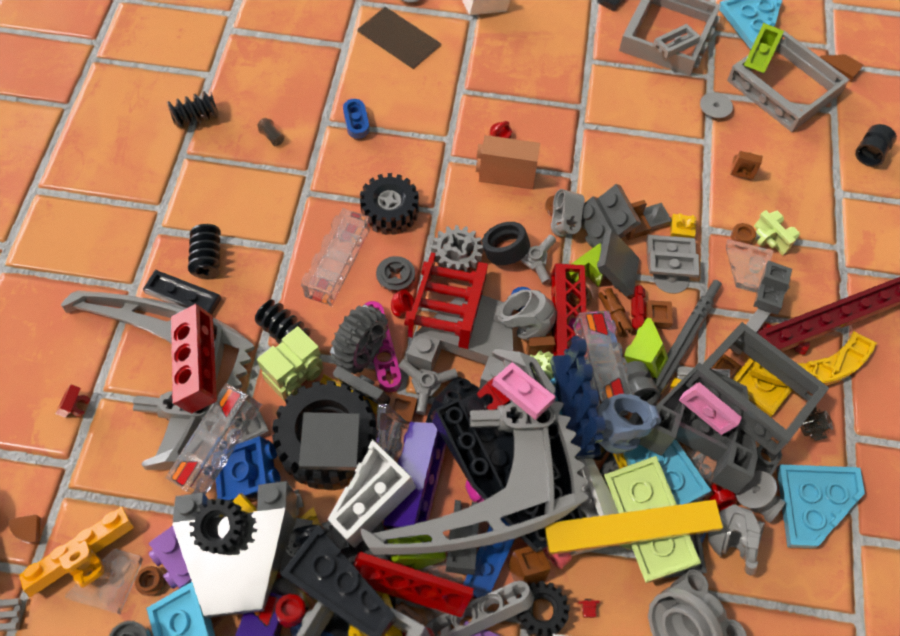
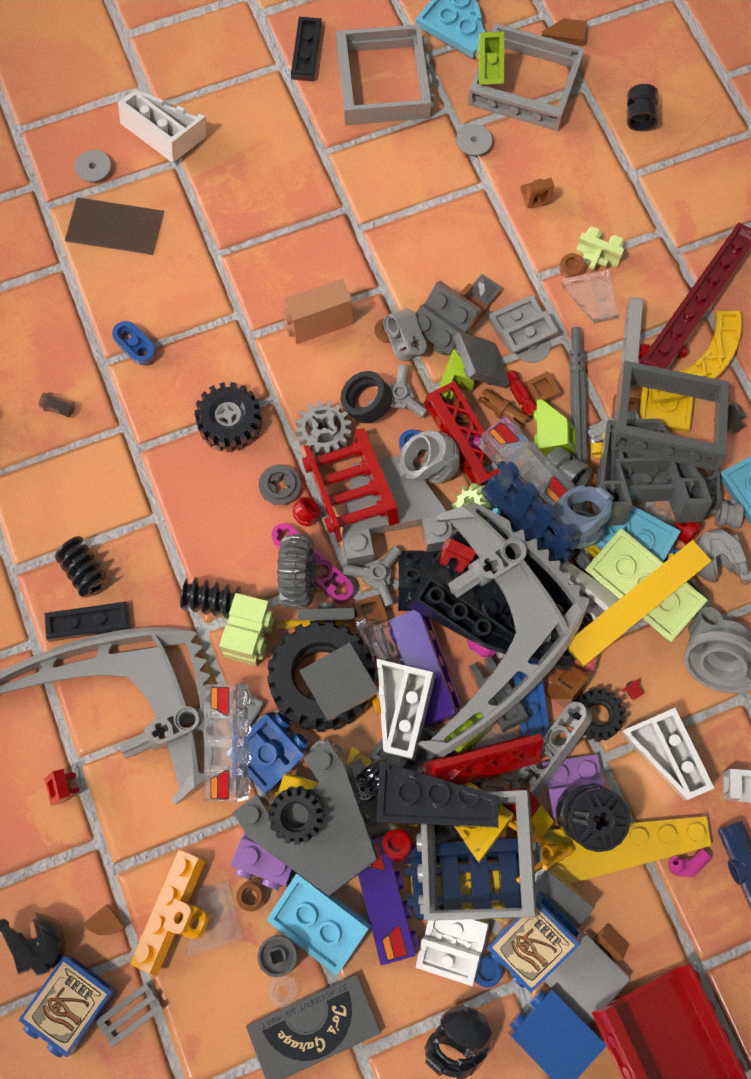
camera: 30 degrees left, 10 degrees up
(193, 359) = (155, 679): red brick -> none
(335, 257) = (213, 500): clear brick -> none
(501, 129) = (286, 281): red tile -> none
(523, 390) = (487, 540): bright pink plate -> none
(542, 344) = (457, 480): dark orange tile -> none
(679, 43) = (394, 104): light grey tile -> none
(683, 226) = (514, 288): yellow tile -> none
(710, 408) = (645, 460): bright pink plate -> none
(758, 491) = (721, 509): light grey piece -> none
(772, 287) = (629, 309): dark grey slope -> none

